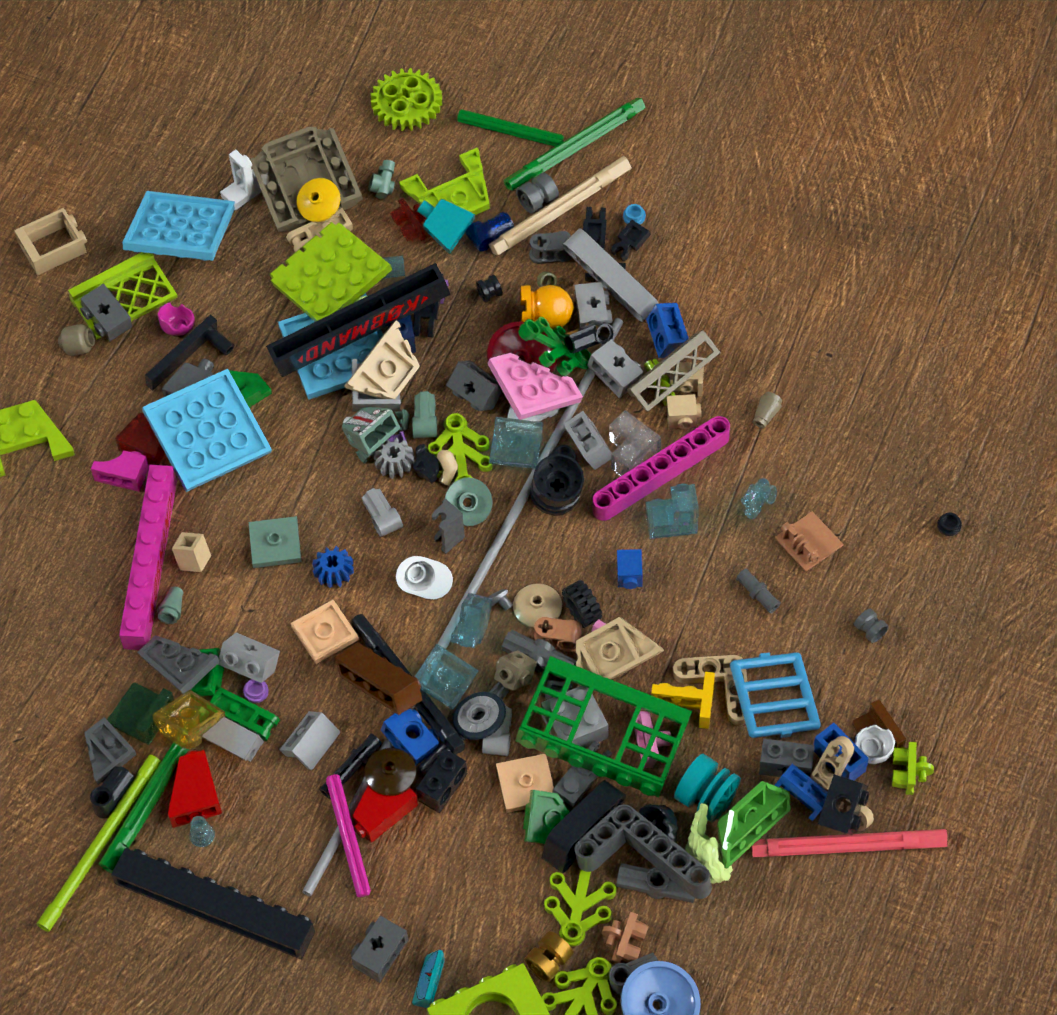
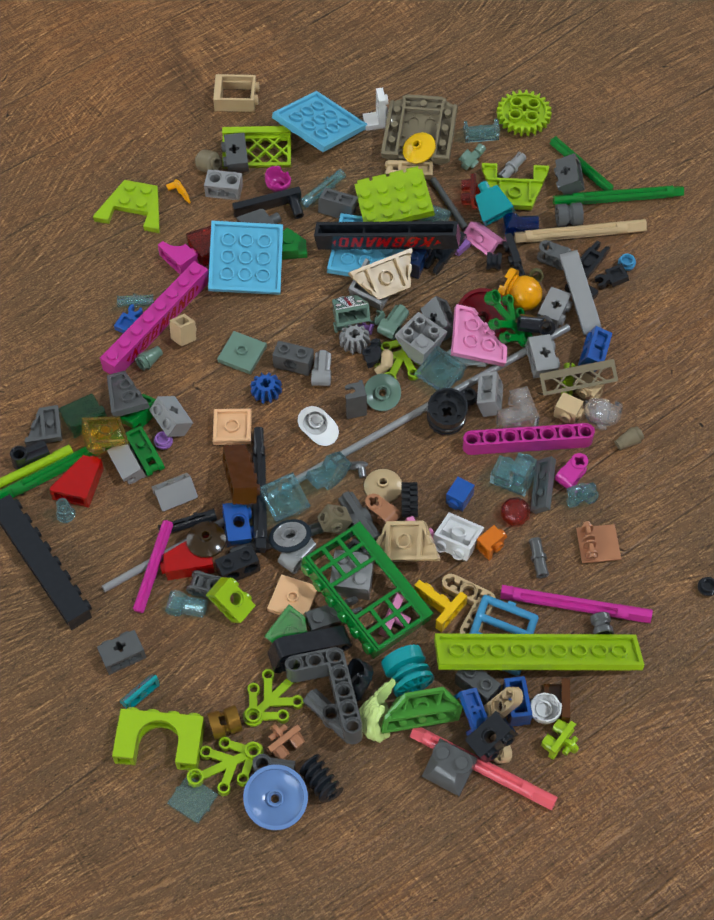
camera: 30 degrees right, 0 degrees up
(65, 389) = (181, 190): none -> light orange bar
(106, 548) = (136, 300): none -> clear light blue pin
(116, 361) = (223, 184): none -> light grey brick
(117, 577) = (127, 320): none -> blue plate
(238, 295) = (337, 176): none -> clear light blue pin
(265, 312) = (335, 202): none -> dark grey hinge
(341, 516) = (293, 358): none -> dark grey brick
(372, 146) = (481, 132): none -> clear light blue hinge
(407, 859) = (179, 603): none -> clear light blue piece
(408, 256) = (448, 203): none -> dark grey bar
(421, 823) = (201, 583): none -> dark grey piece
(435, 168) = (512, 166): none -> light grey pin
(459, 268) = (482, 237): none -> bright pink panel
(464, 821) = (221, 594): none -> lime brick
(471, 418) = (420, 337): none -> light grey slope
(507, 146) = (569, 174): none -> dark grey brick
(508, 272) = (514, 257): none -> black hinge
(659, 615) = (457, 536): none -> white plate
(692, 955) = (319, 780): none -> black piece
(698, 602) = (491, 541): none -> orange brick
(700, 555) = (515, 511): none -> clear red hair
(712, 511) = (543, 485): none -> dark grey plate
(722, 397) = (602, 412): none -> clear cylinder
(732, 479) = (573, 471): none -> dark pink piece
(817, 863) = (449, 767): none -> dark grey slope
(827, 690) = (538, 652): none -> lime plate
(828, 618) = (577, 604): none -> dark pink piece

